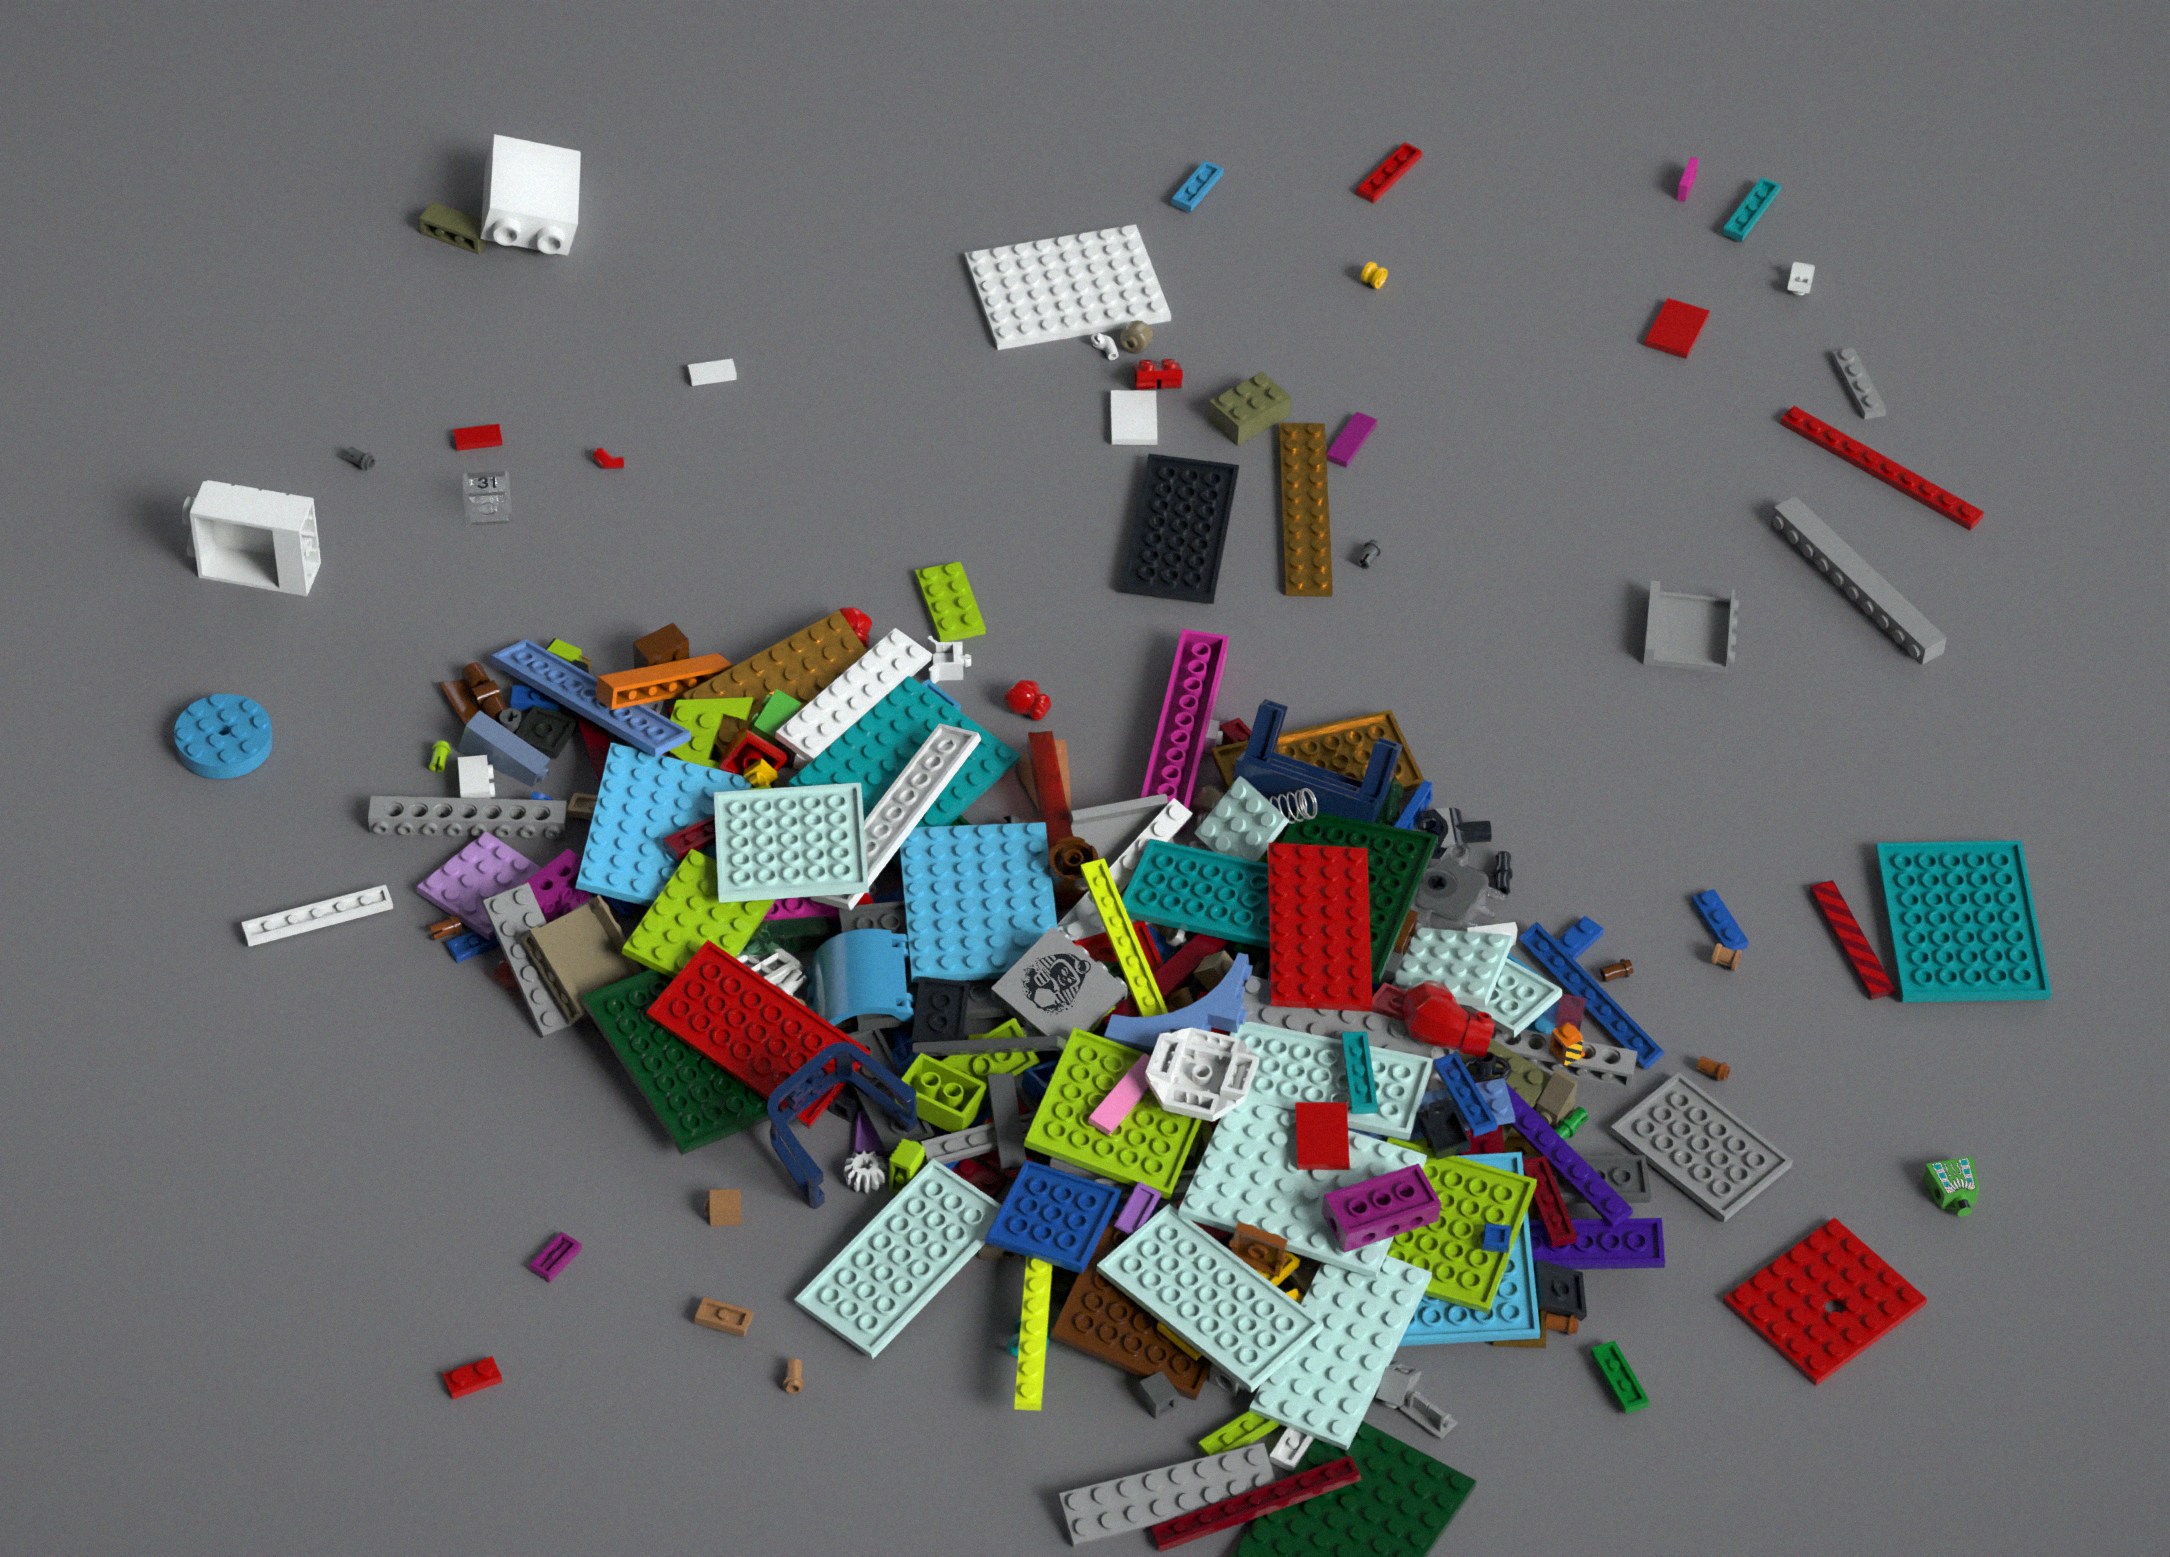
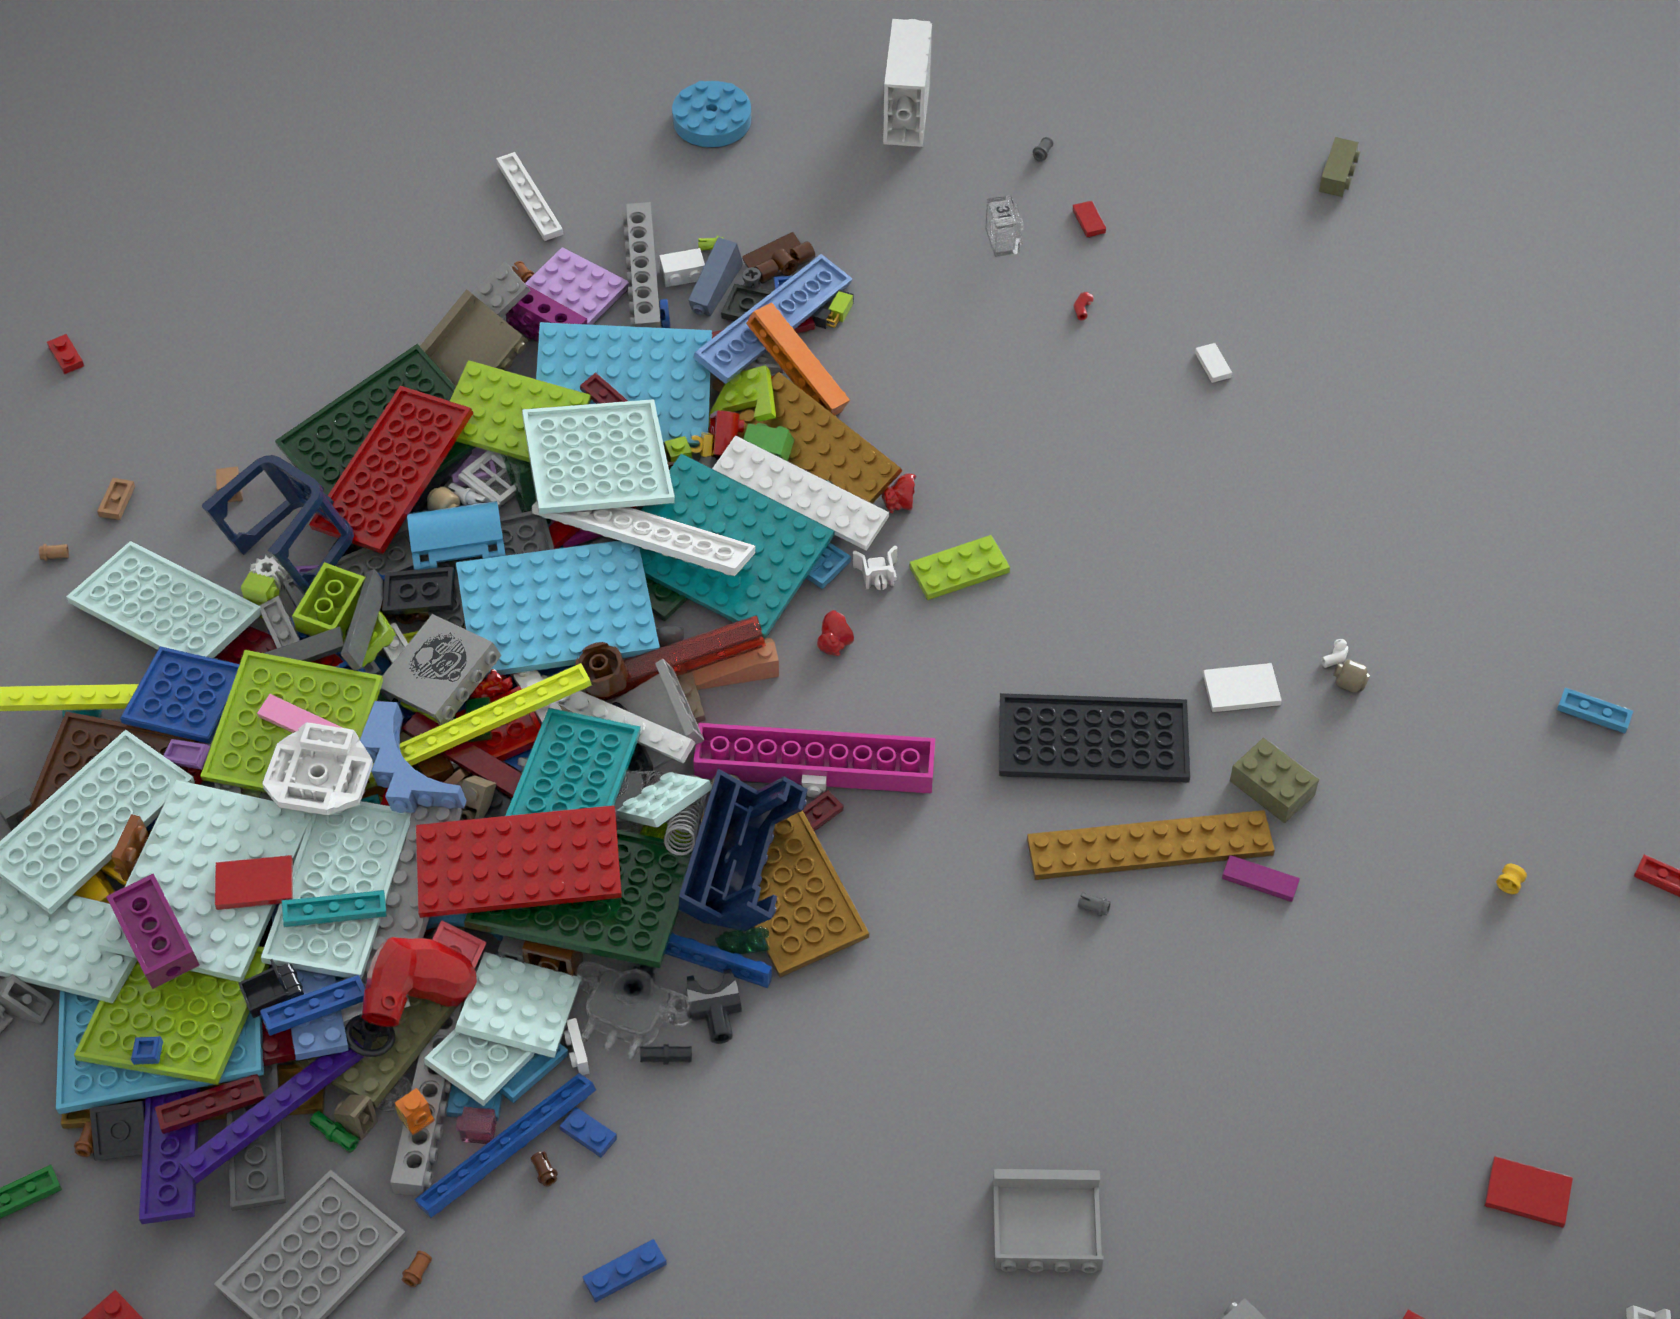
camera: 85 degrees right, 5 degrees up
(530, 195) = (1379, 198): white brick -> none
(559, 1258) = (182, 390): magenta tile -> none
(661, 647) = (839, 359): reddish brown brick -> none
(1066, 286) = (1413, 618): white plate -> none
(1167, 371) = (1303, 697): red plate -> none
(1726, 956) = (569, 1275): medium nougat bush -> none

